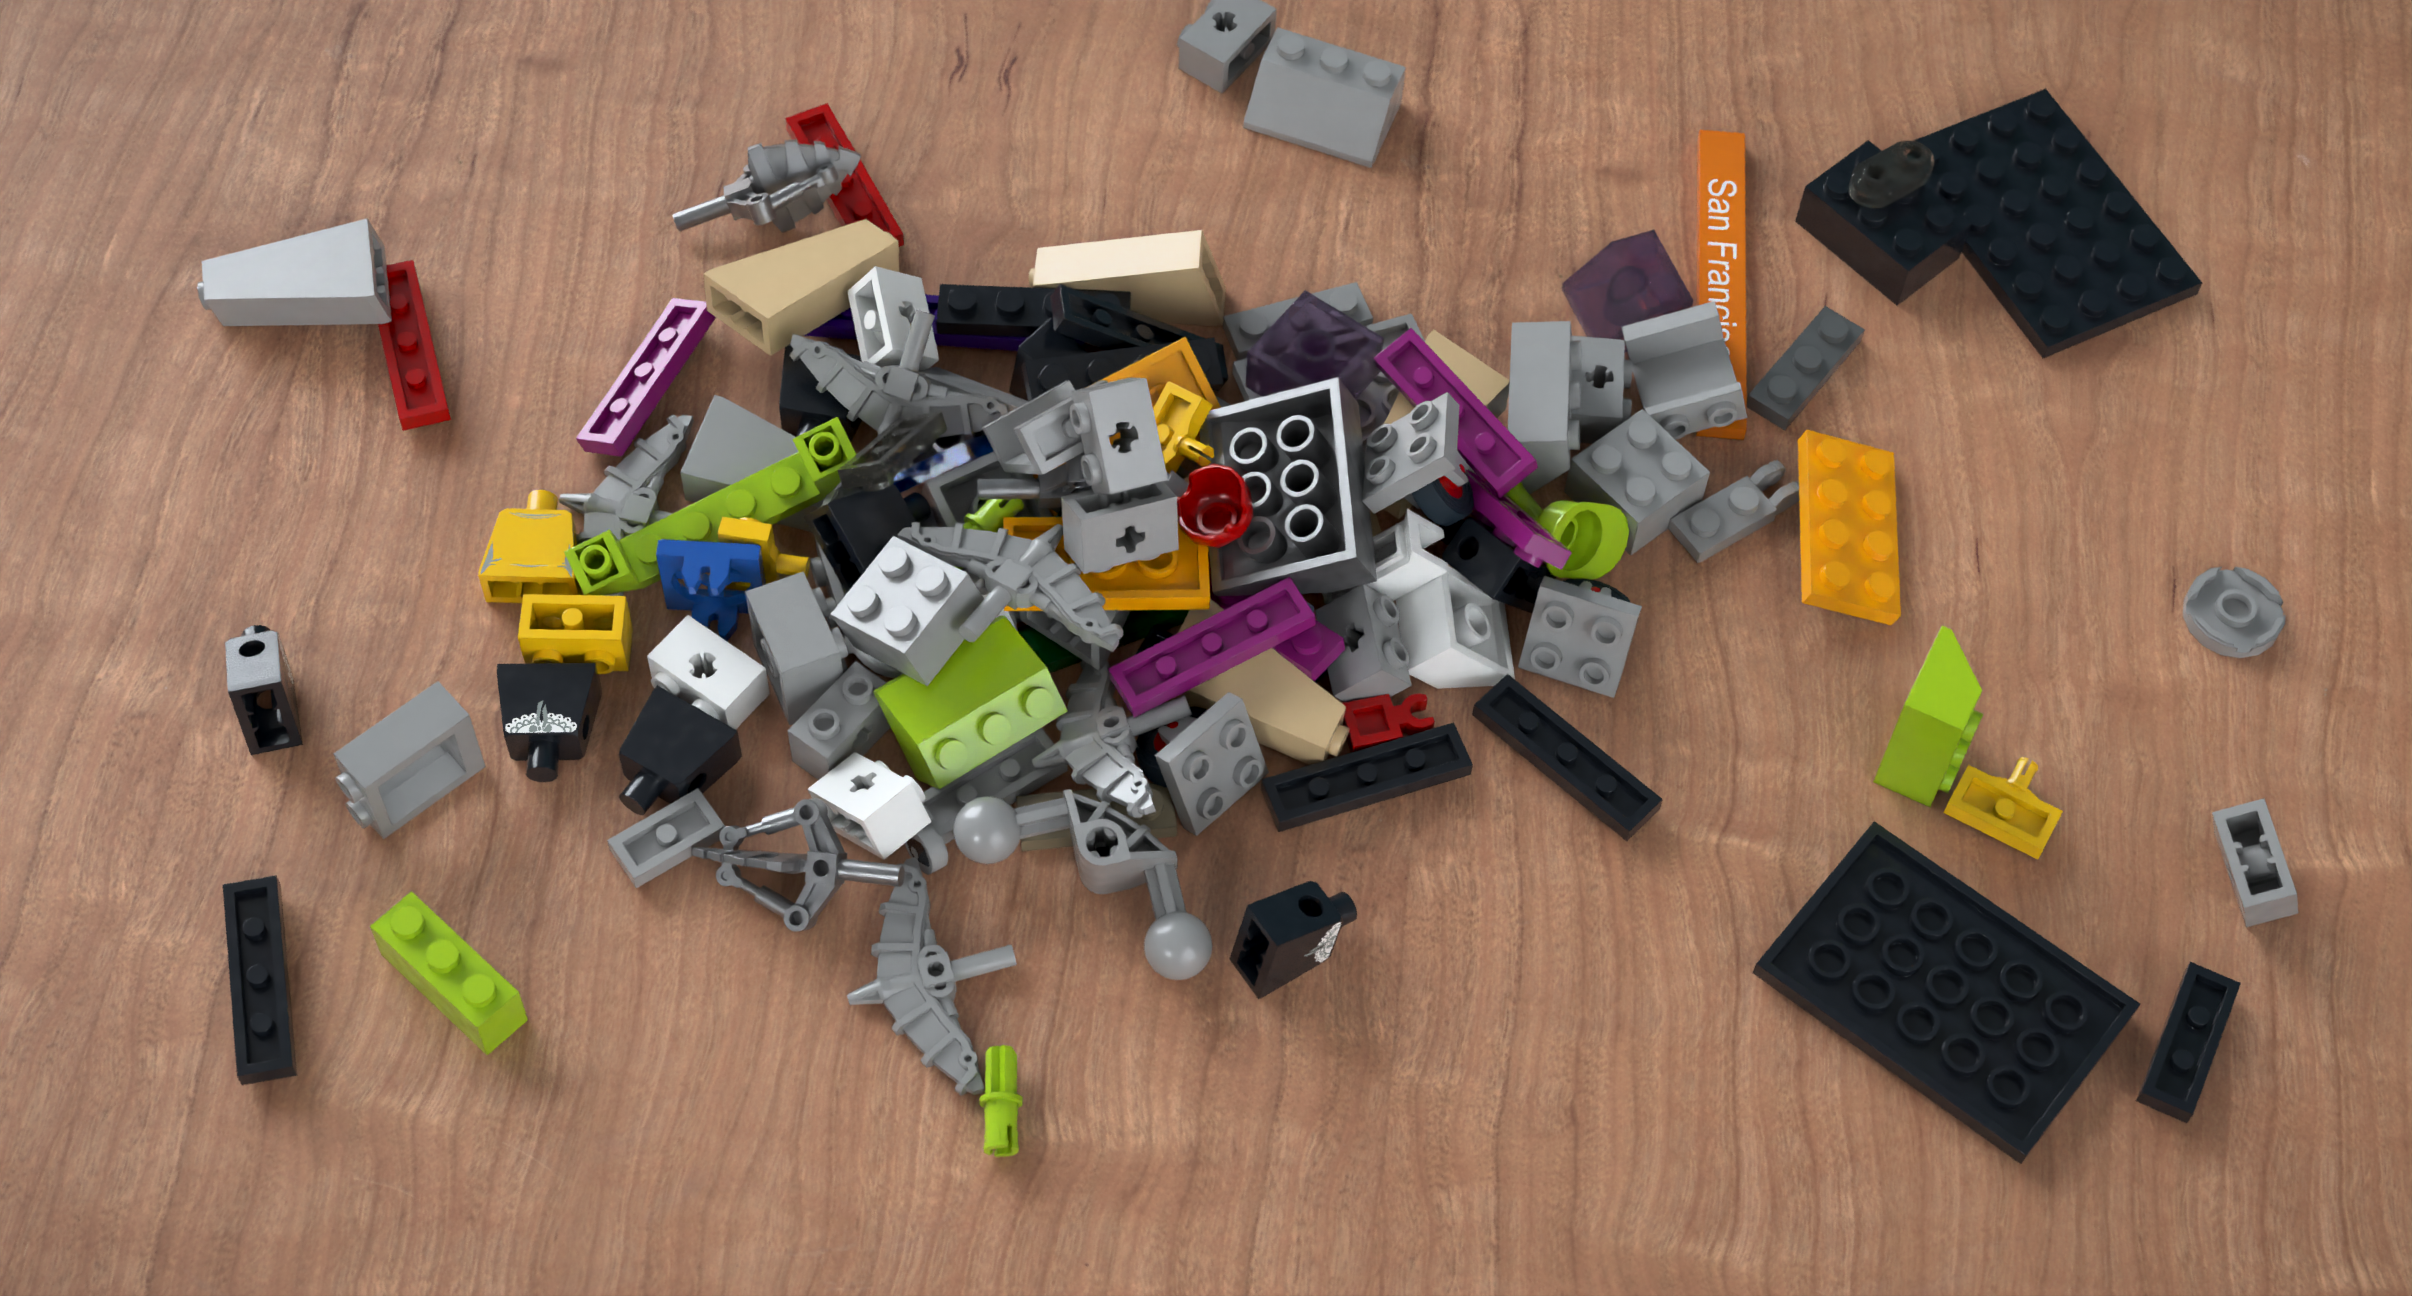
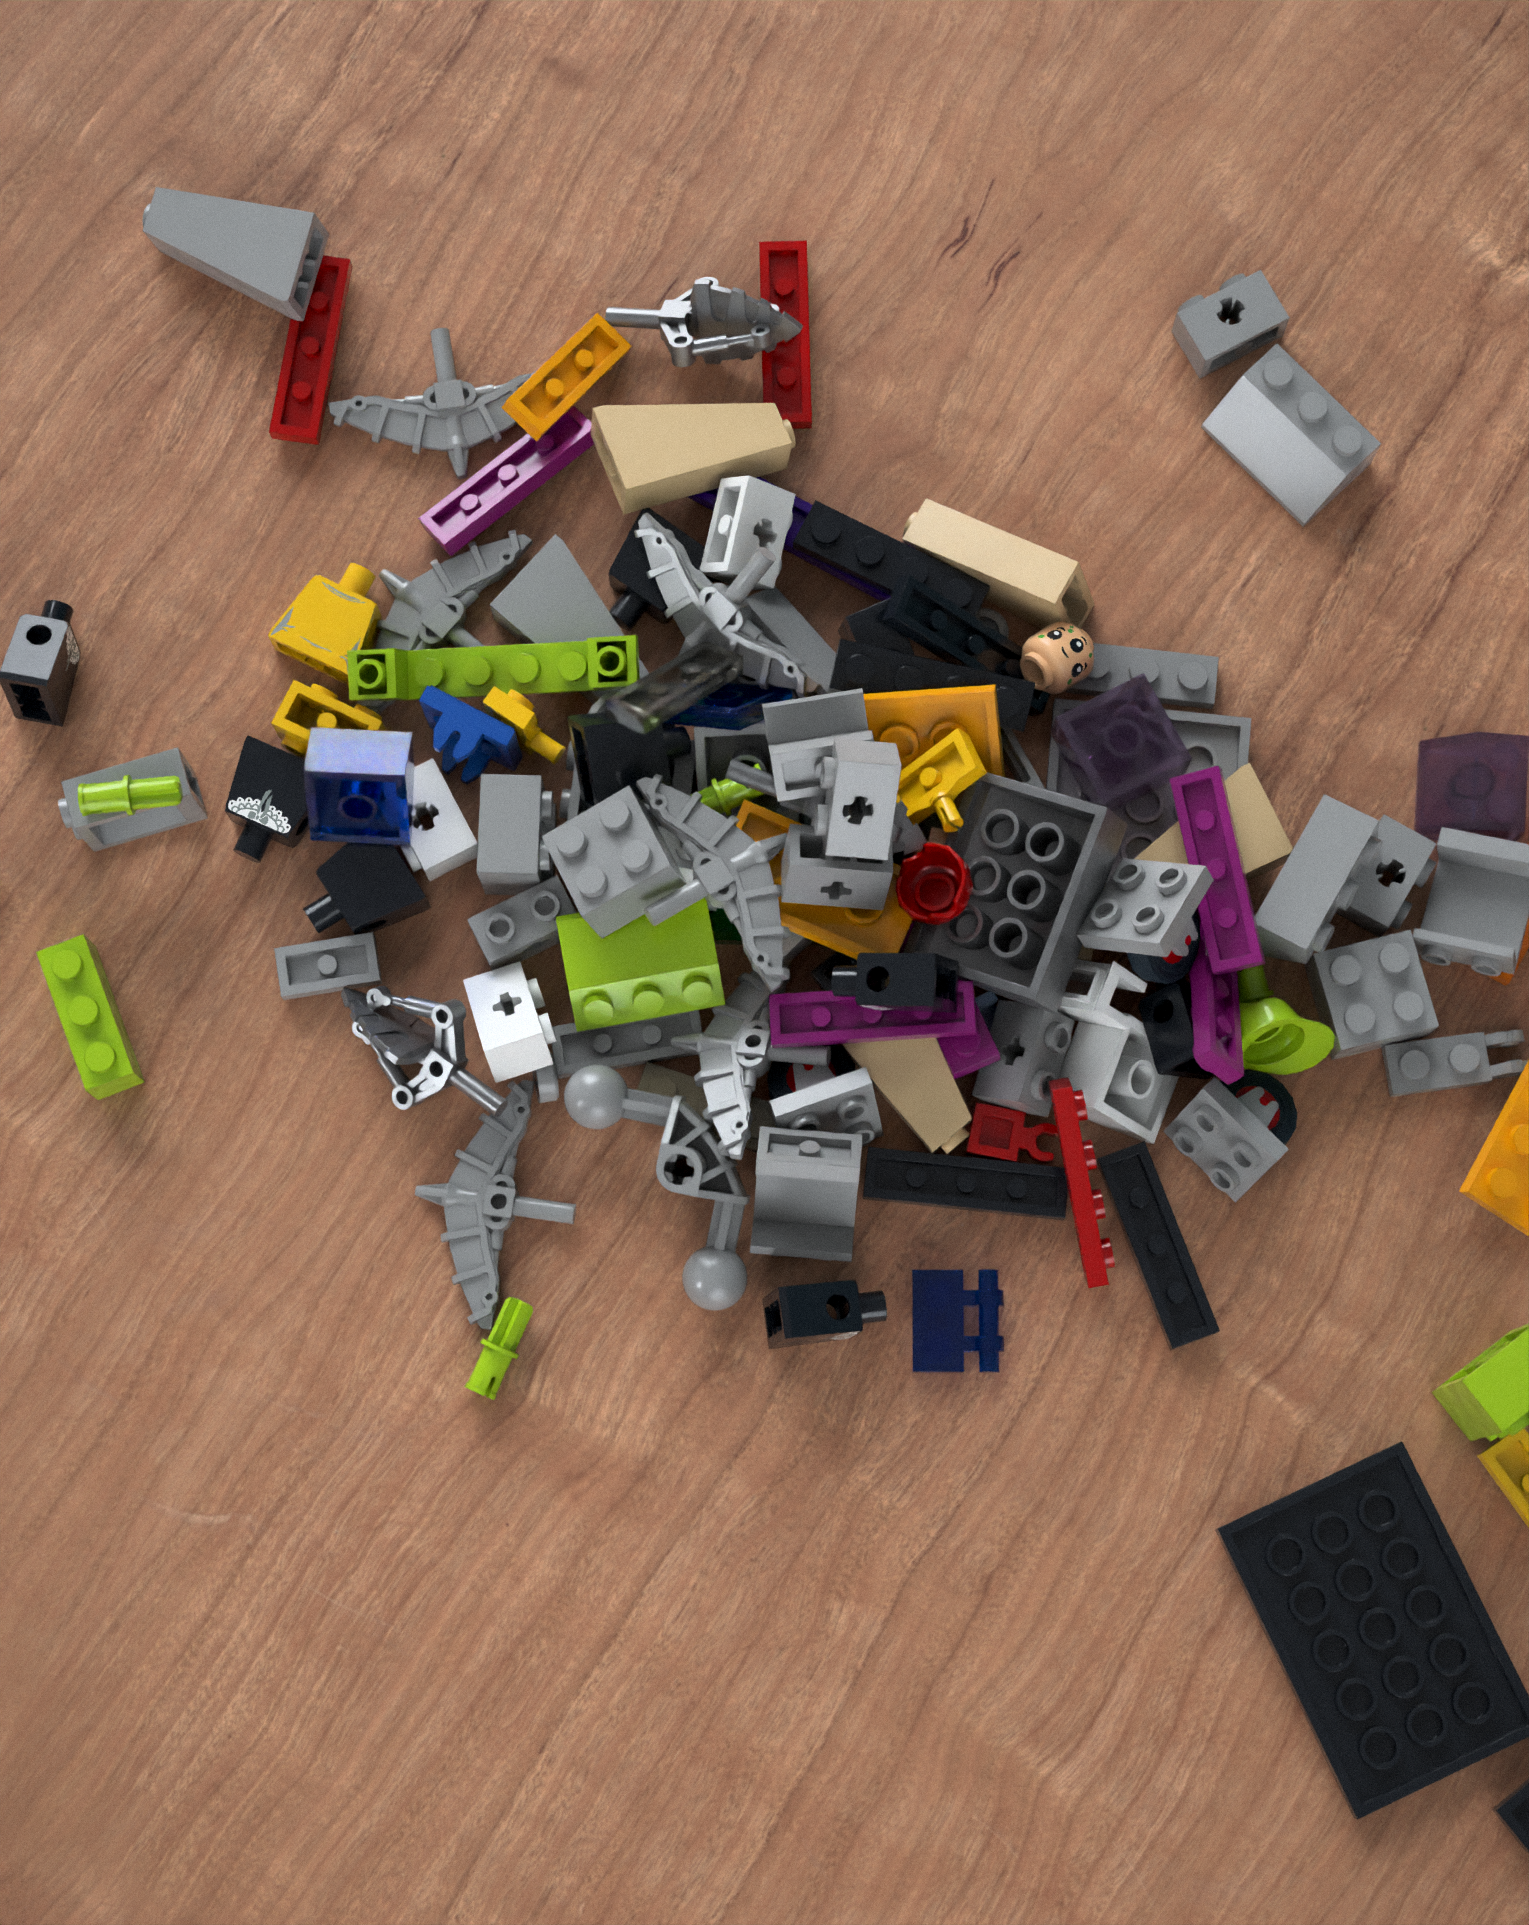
camera: 30 degrees right, 20 degrees up
(409, 732) = (129, 795): none -> lime axle
(563, 347) = (445, 418): none -> light grey bar
(633, 650) = (359, 785): none -> clear blue slope
(662, 276) = (566, 377): none -> light orange plate
(1223, 316) = (1057, 657): none -> light nougat head
(1226, 831) = (806, 1193): none -> light grey panel
(1227, 589) = (916, 982): none -> black torso
(1406, 908) = (939, 1321): none -> clear blue plate
(1461, 705) = (1086, 1203): none -> red plate

